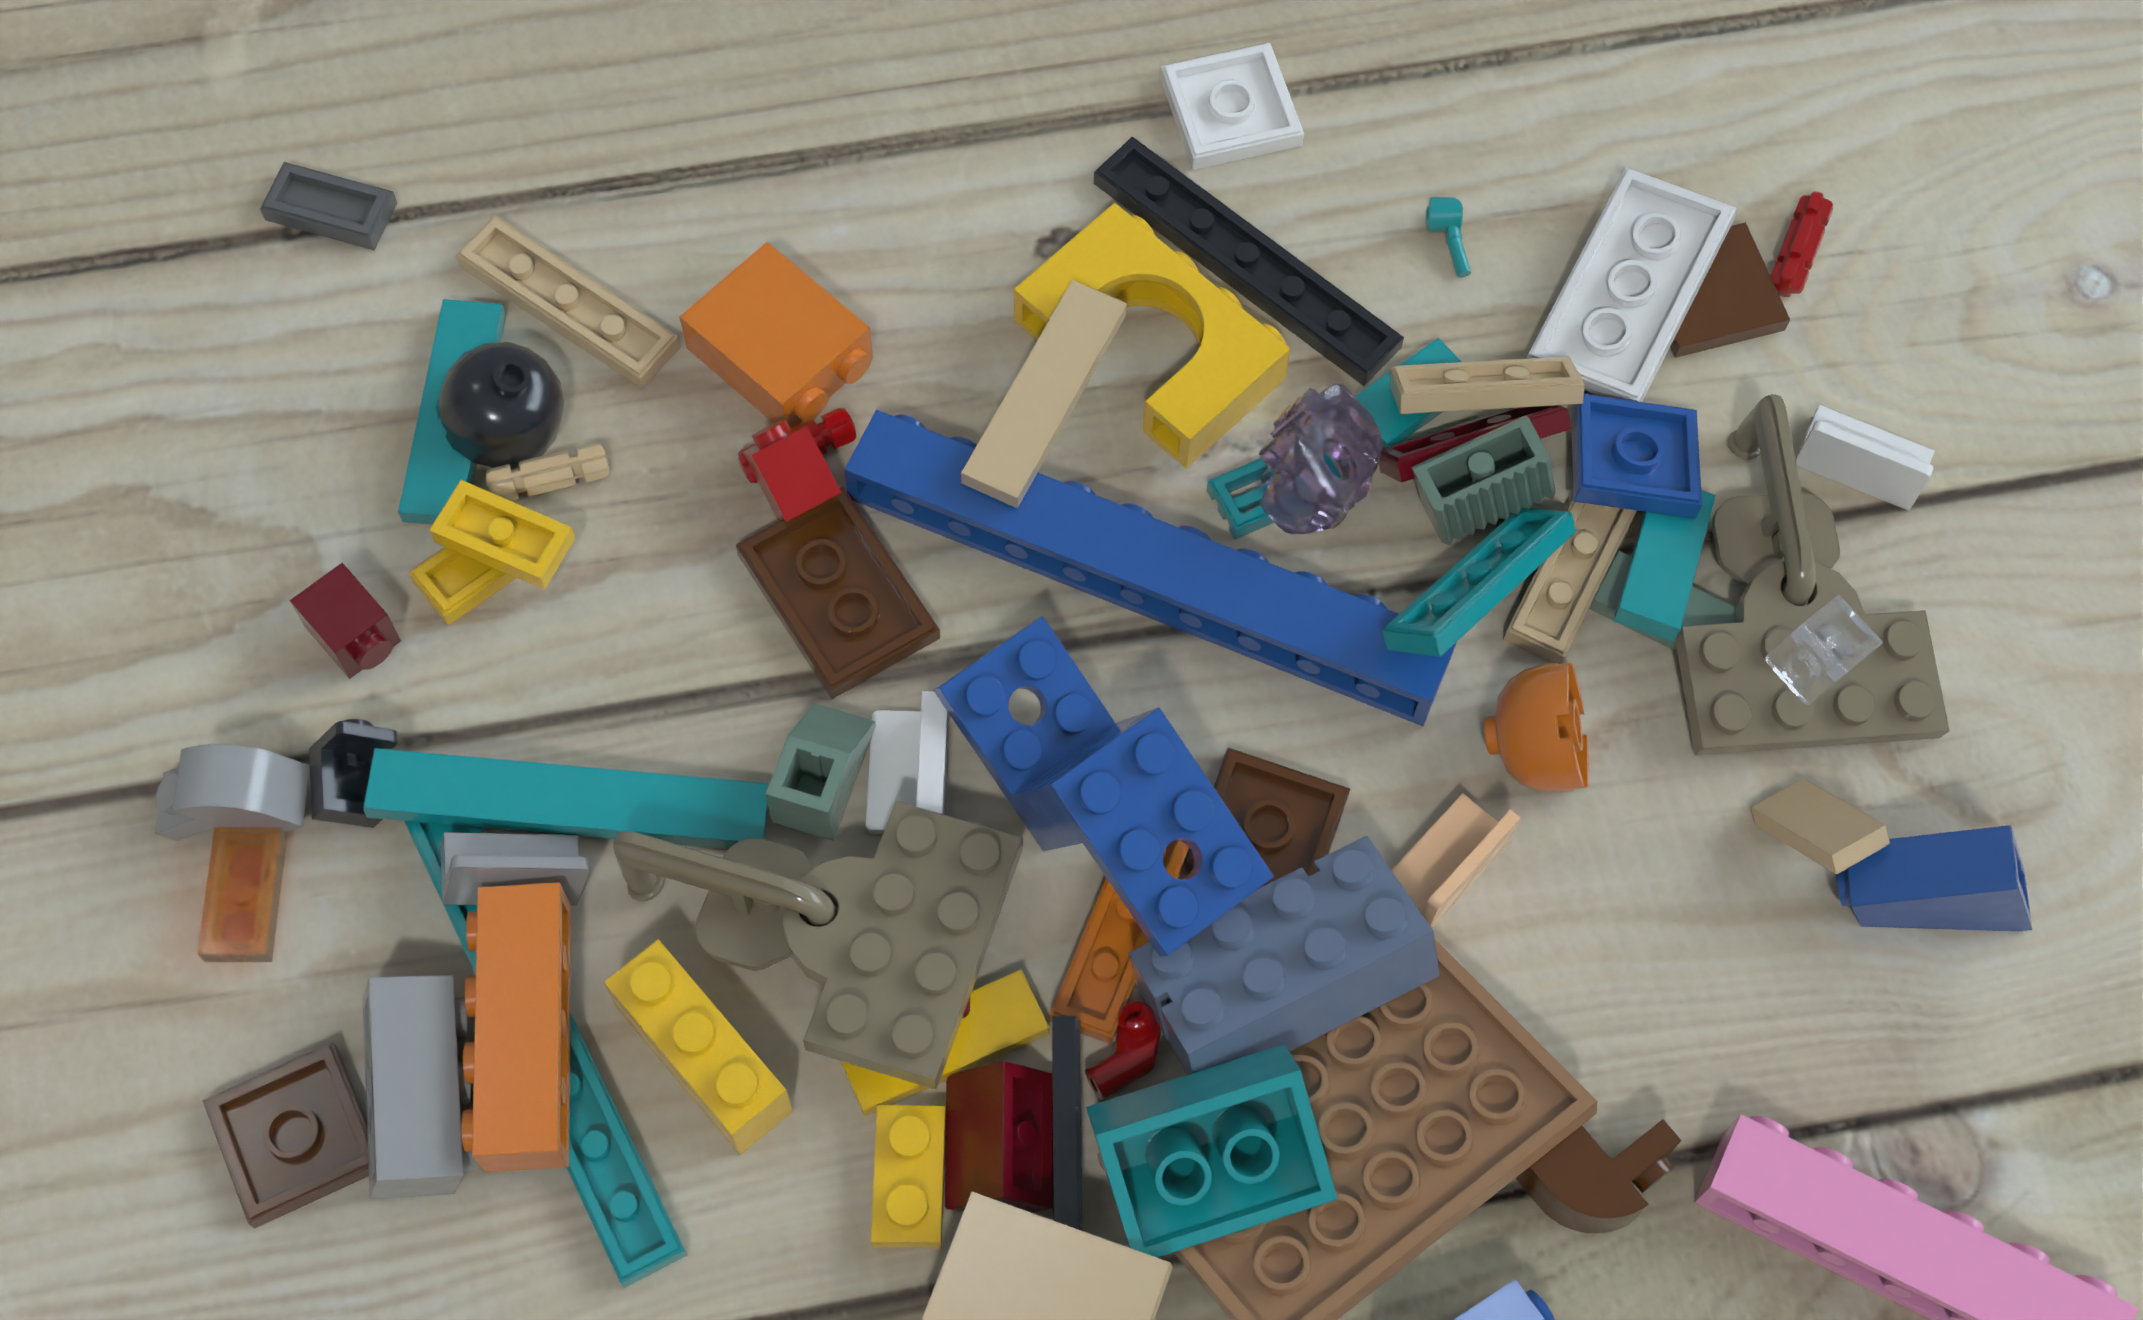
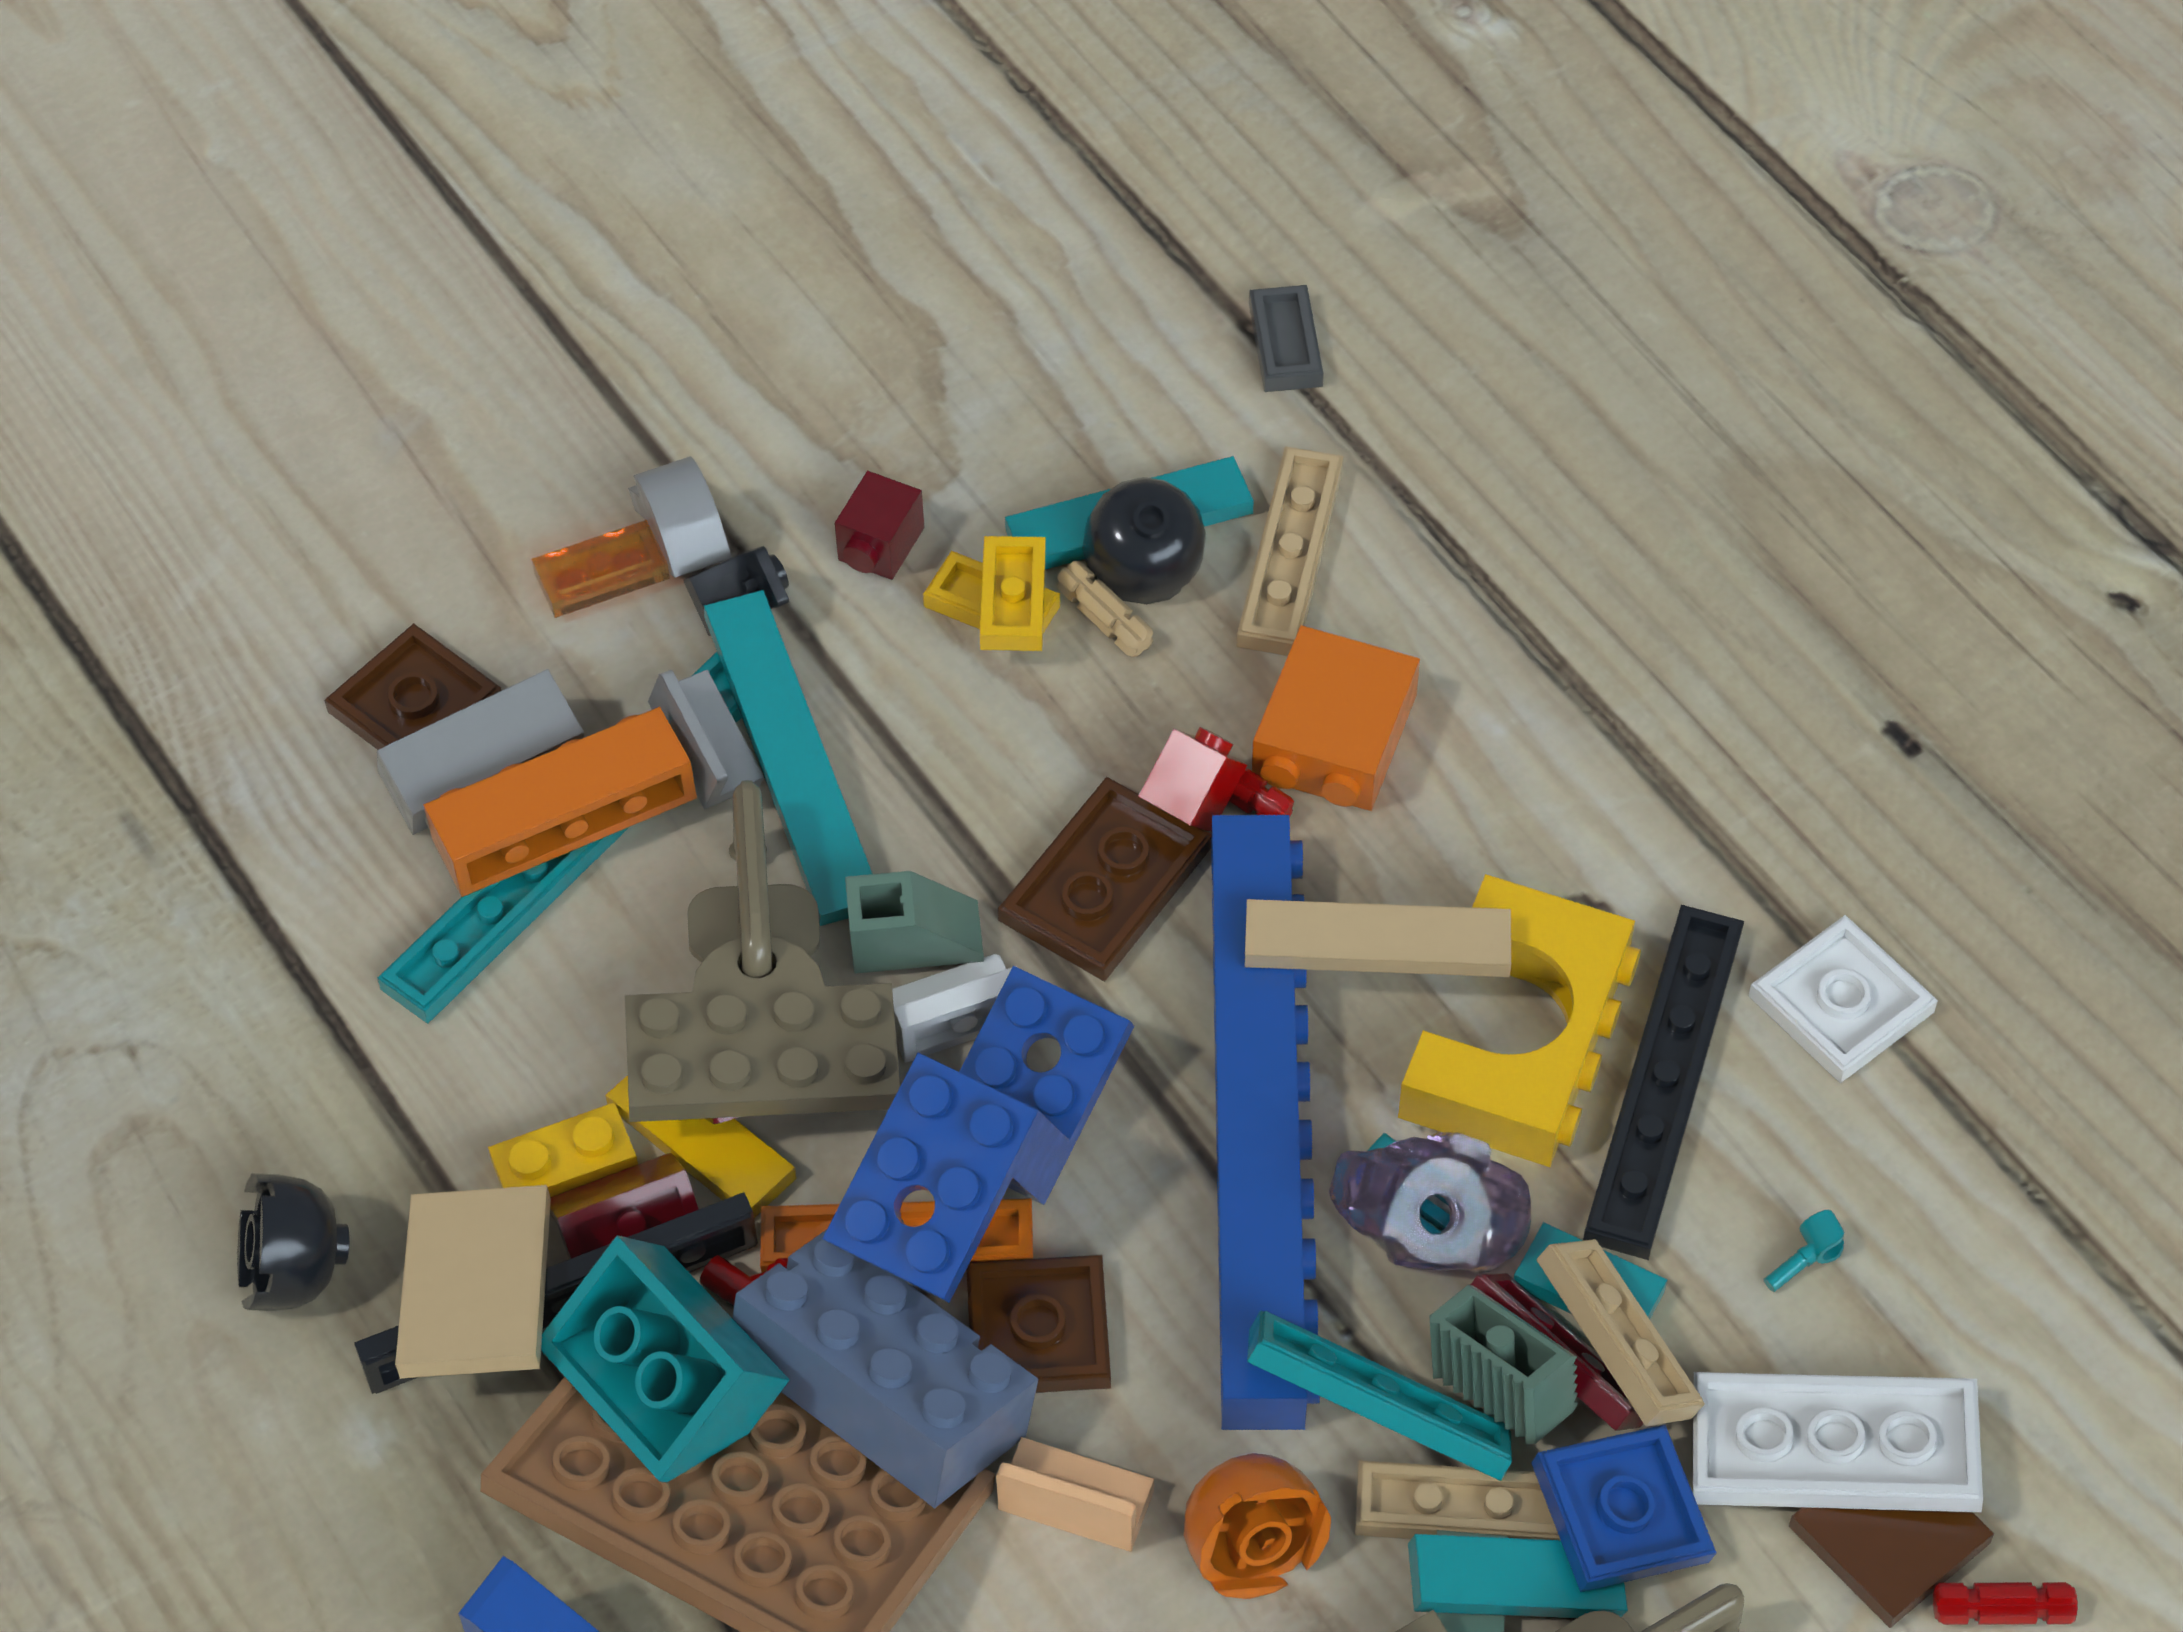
camera: 70 degrees right, 10 degrees down
(699, 1047) = (604, 942): yellow brick -> none

